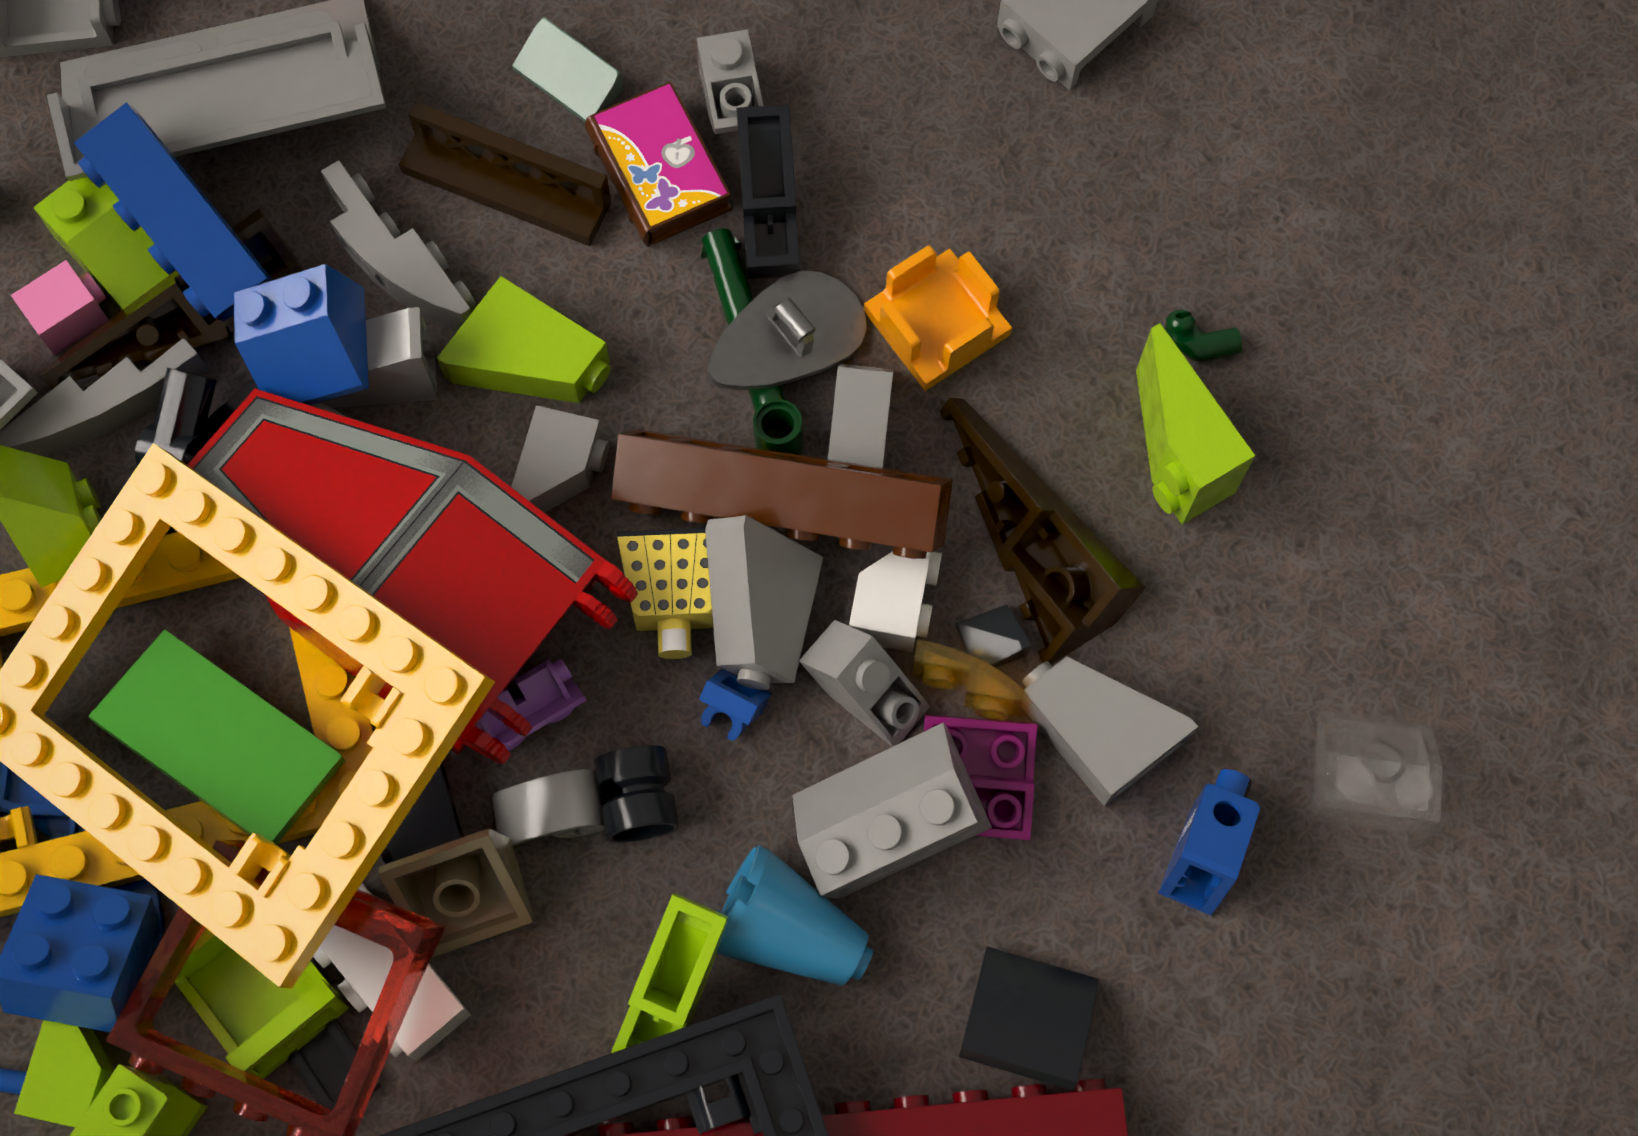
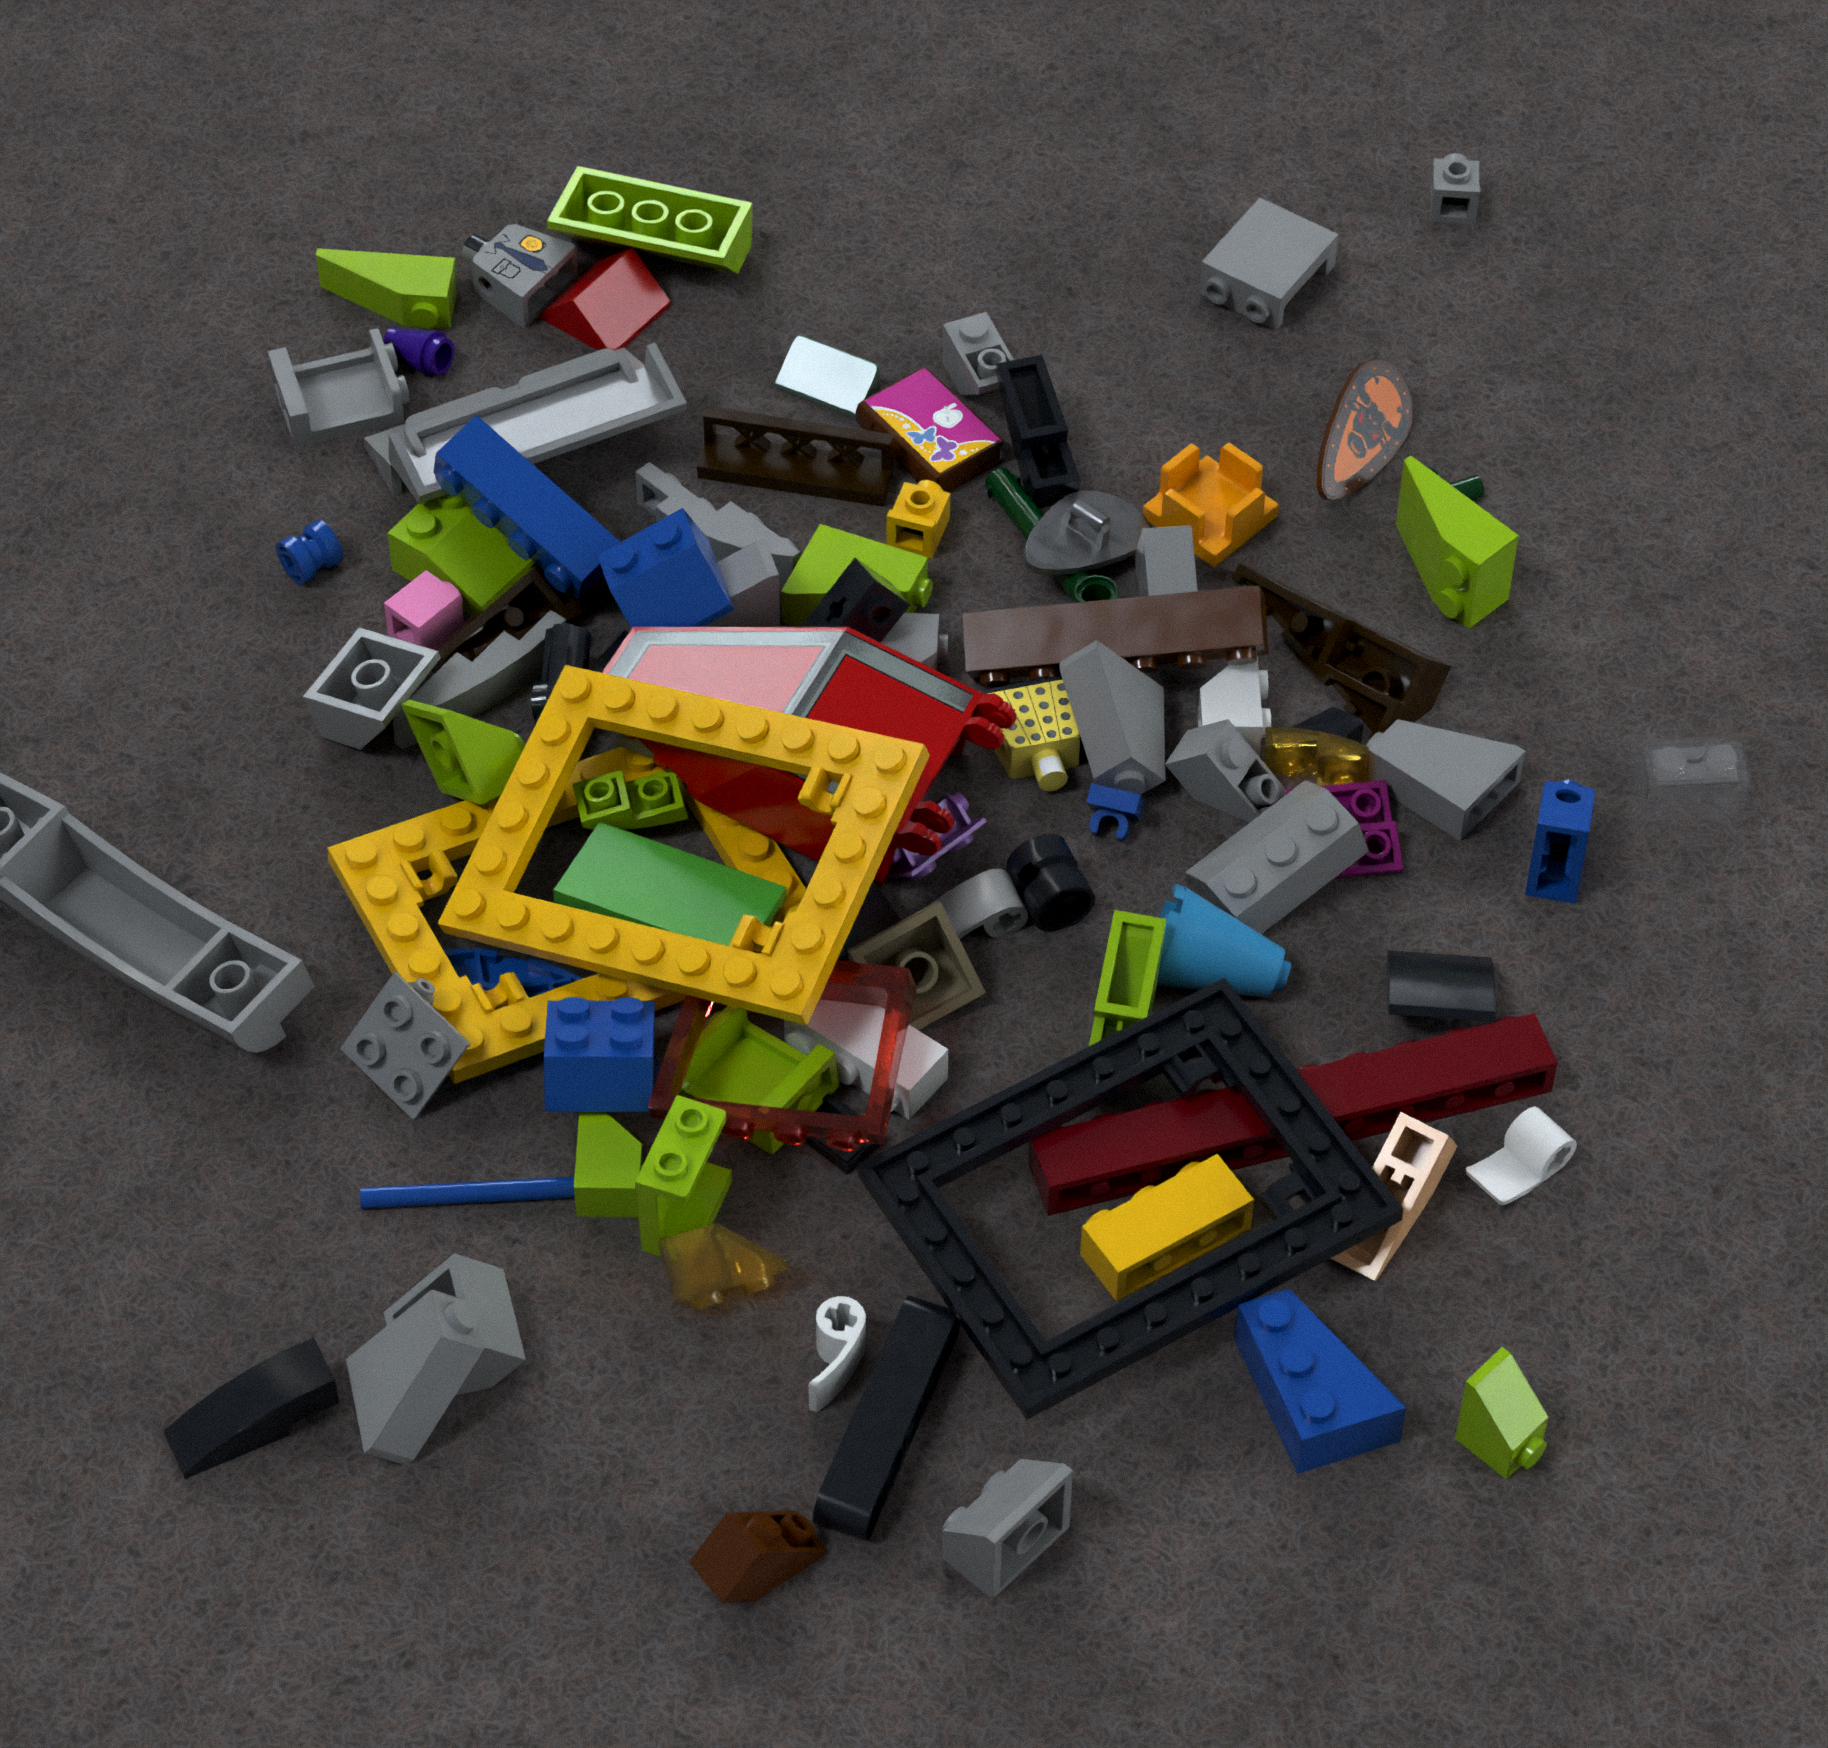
camera: 10 degrees left, 20 degrees down
(205, 604) = (630, 804): none -> lime slope
(502, 411) = (861, 602): none -> black brick
(617, 291) = (920, 508): none -> yellow brick
(1126, 251) = (1364, 428): none -> shield

